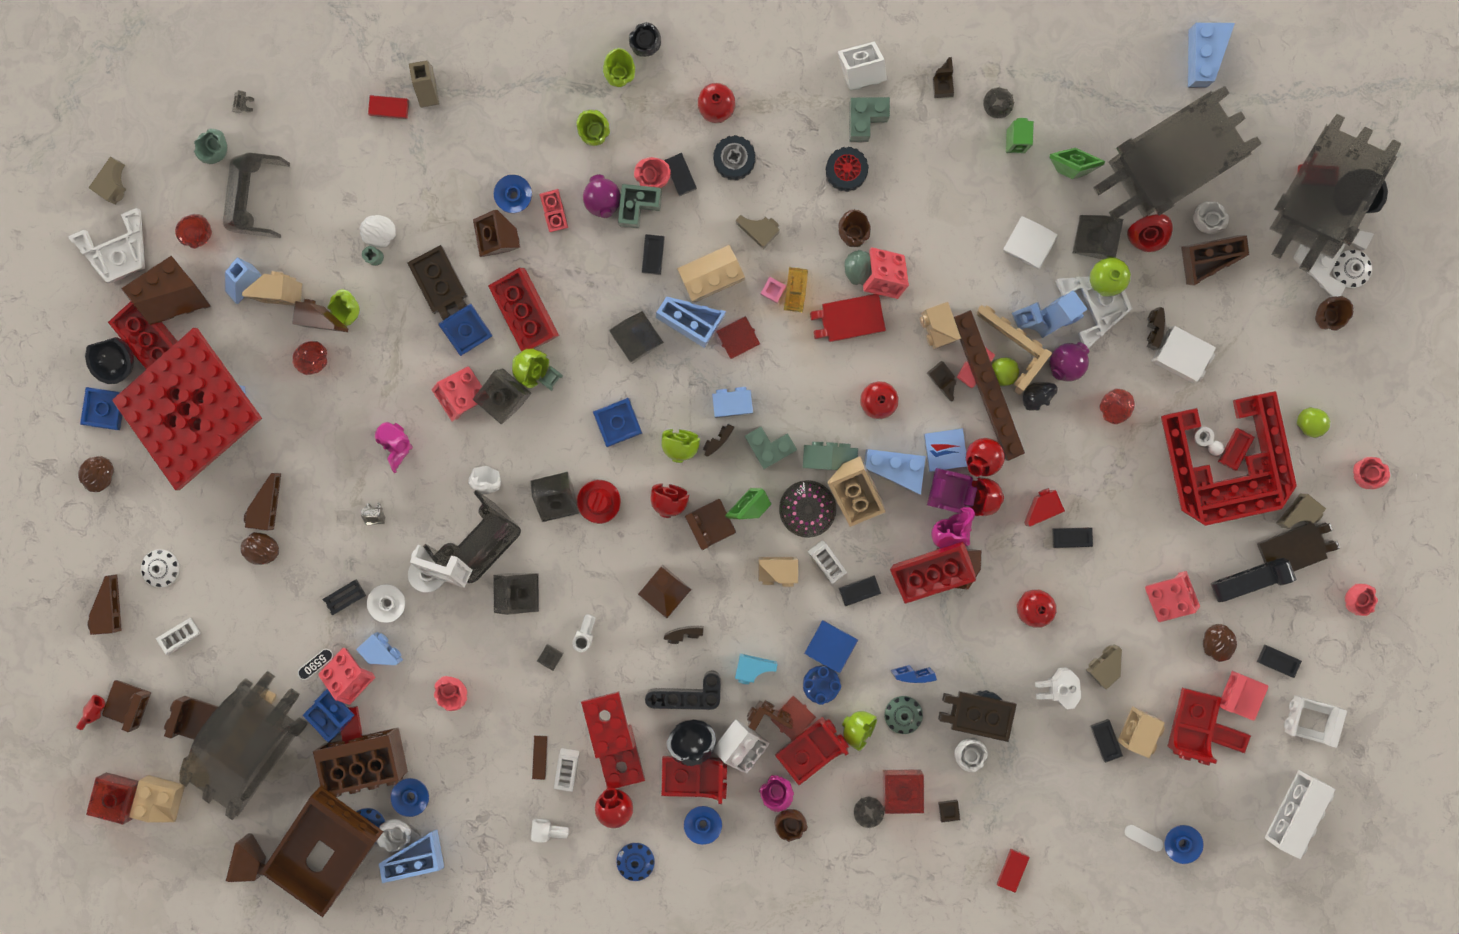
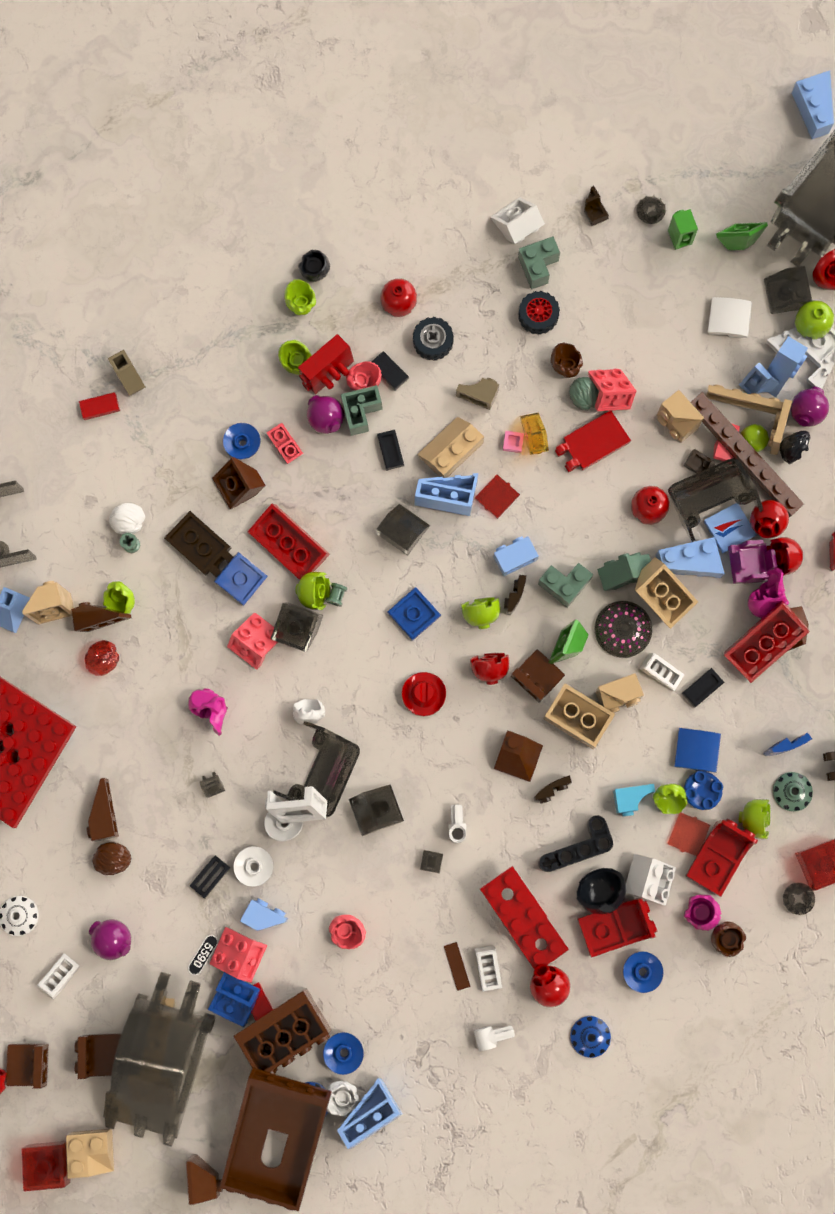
camera: 15 degrees left, 10 degrees down
(234, 621) = (110, 939): none -> magenta brick
(554, 496) = (380, 704): clear smoke slope -> none
(619, 149) = (326, 365): none -> red piece
(732, 577) = (579, 716): none -> tan slope
(756, 714) = (653, 840): reddish brown bracket -> none
(787, 682) = (670, 798): none -> lime hair
(939, 407) = (711, 488): none -> clear smoke windscreen

